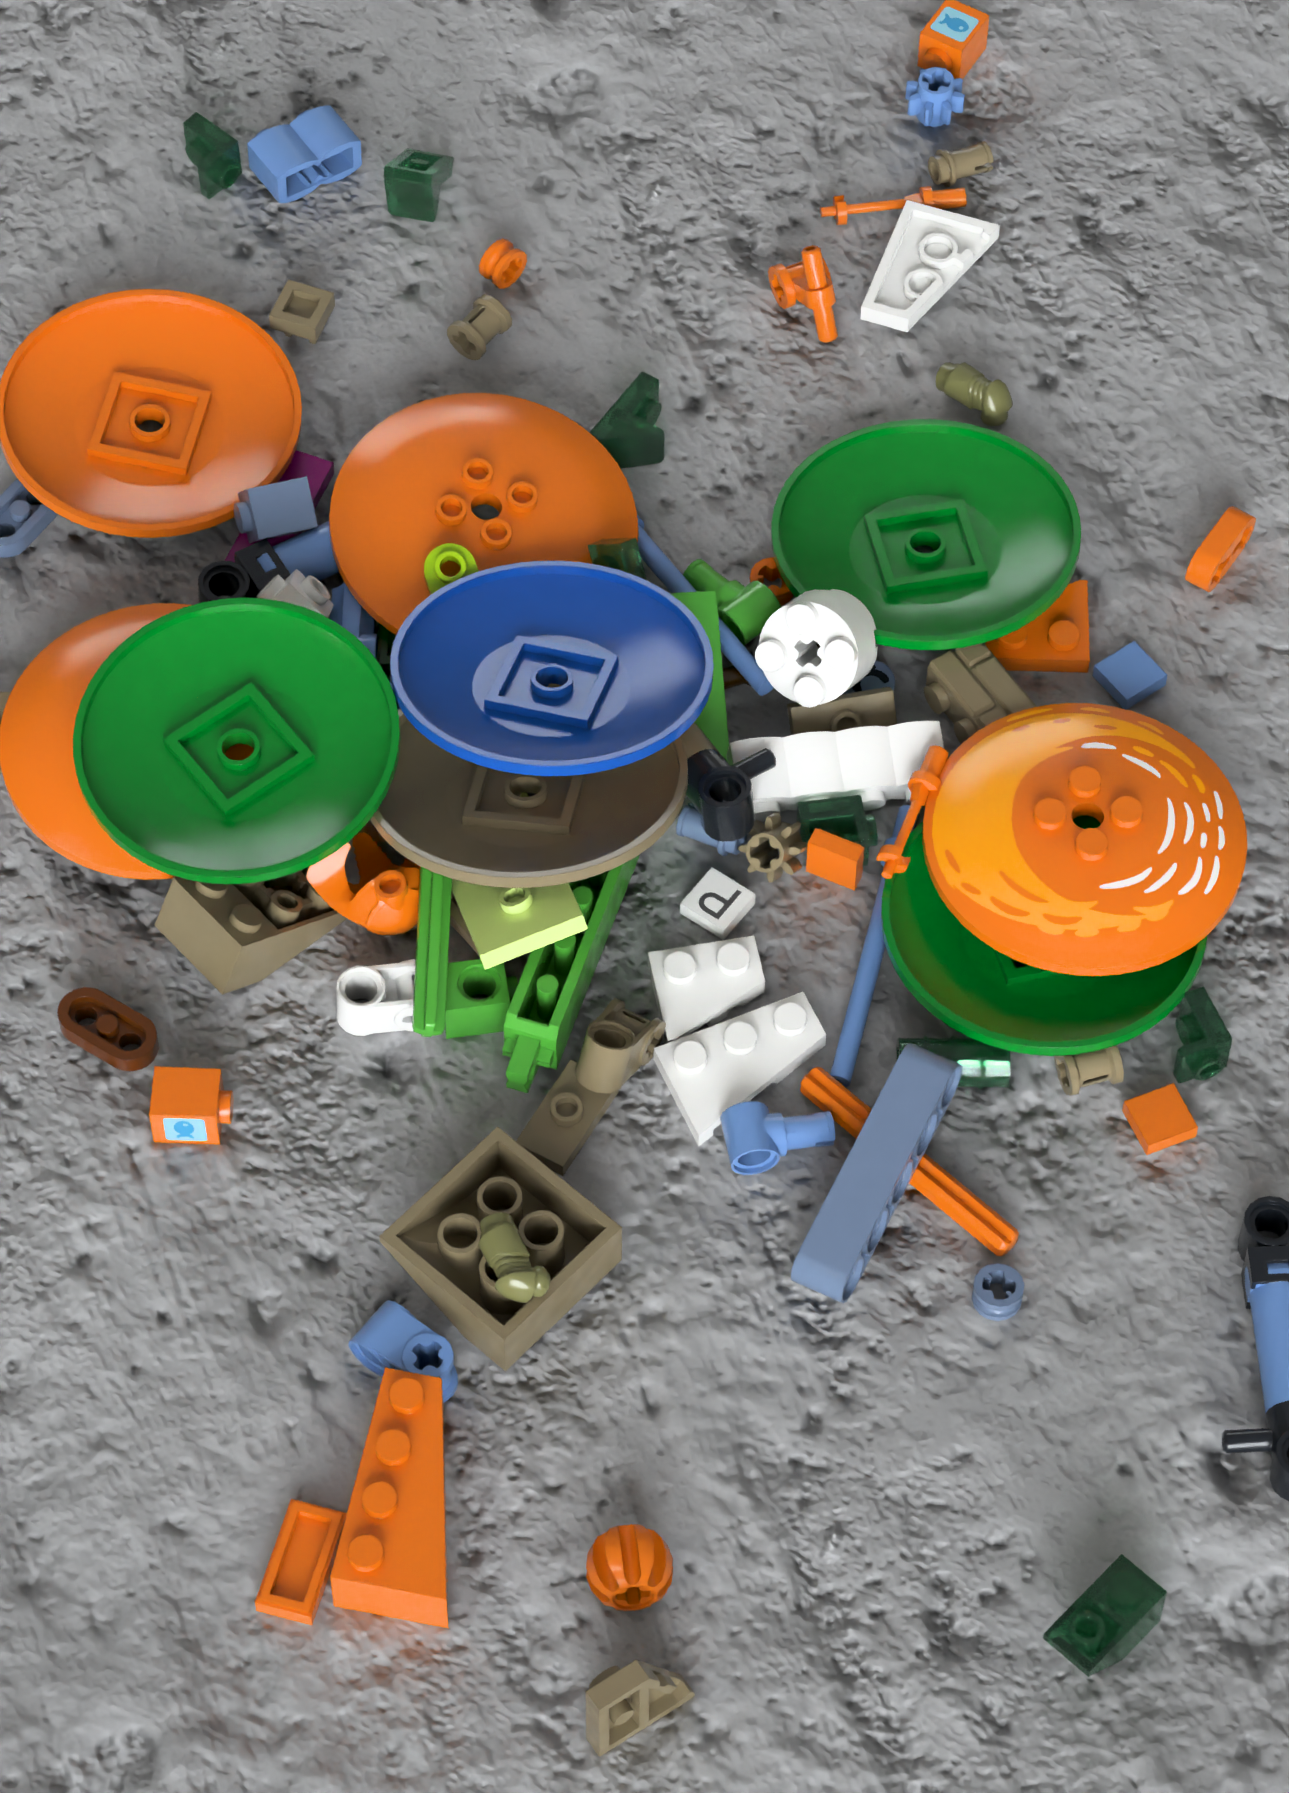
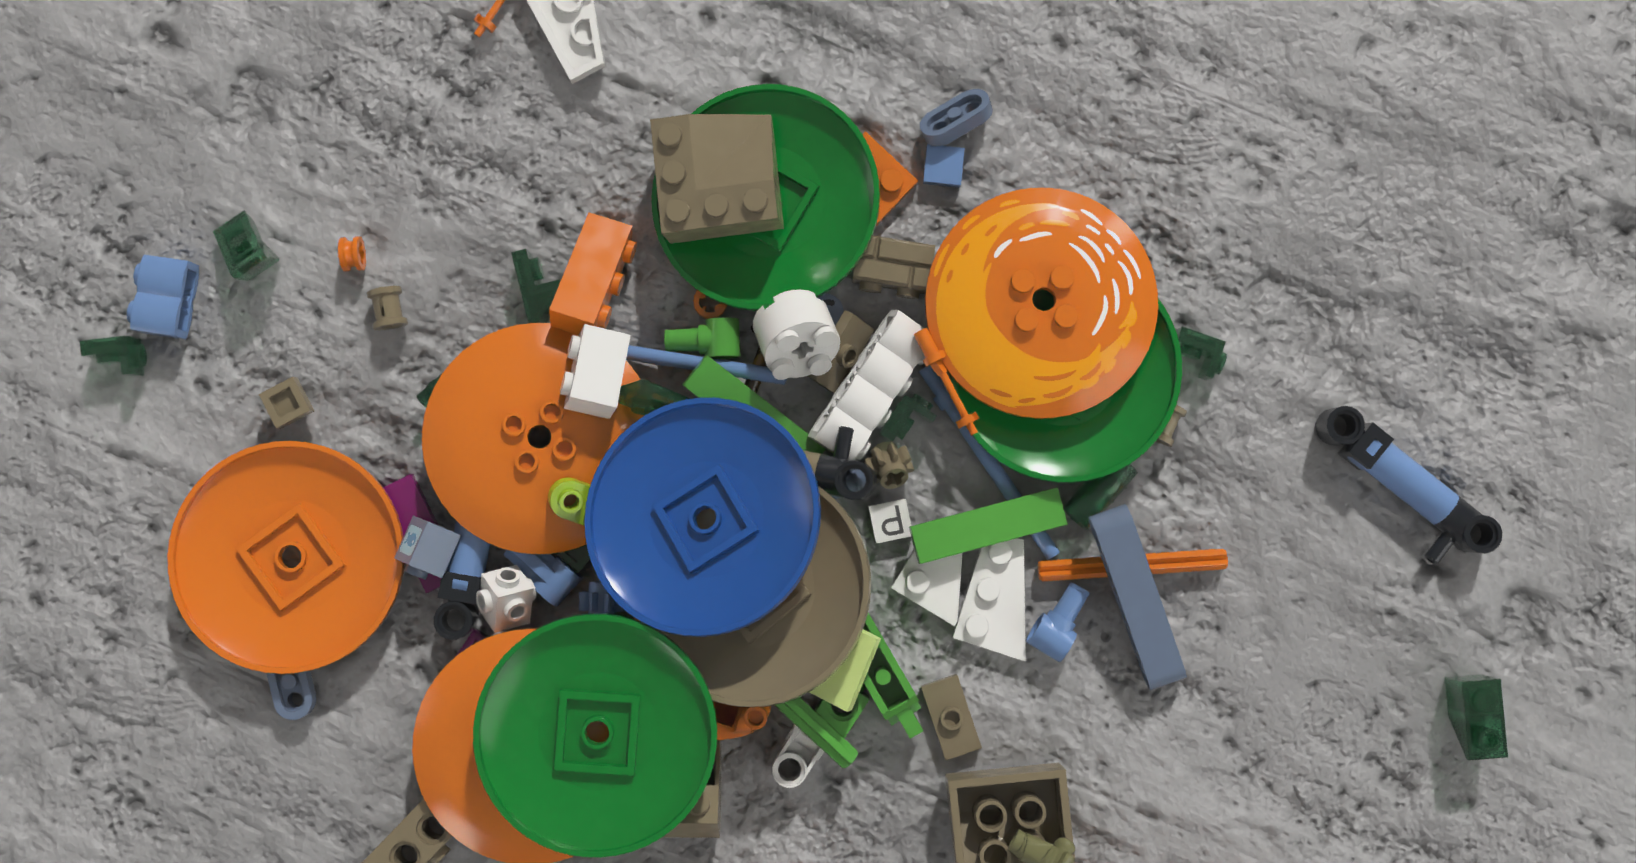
camera: 45 degrees left, 30 degrees up
(600, 501) = (595, 371): none -> white piece
(616, 1047) = (938, 654): dark tan piece -> none
(689, 450) = (592, 275): none -> orange brick
(806, 978) = (988, 525): none -> bright green tile
(810, 285) = (525, 95): orange piece -> none
(835, 858) = (923, 437): orange tile -> none
(897, 466) = (716, 175): none -> dark tan slope
(975, 391) = (684, 71): olive arm -> none
(983, 1297) = (1244, 577): sand blue bush -> none
(1160, 1119) = (1221, 412): orange tile -> none
(1171, 639) = (956, 117): none -> sand blue plate
(1220, 549) = (911, 39): orange beam -> none

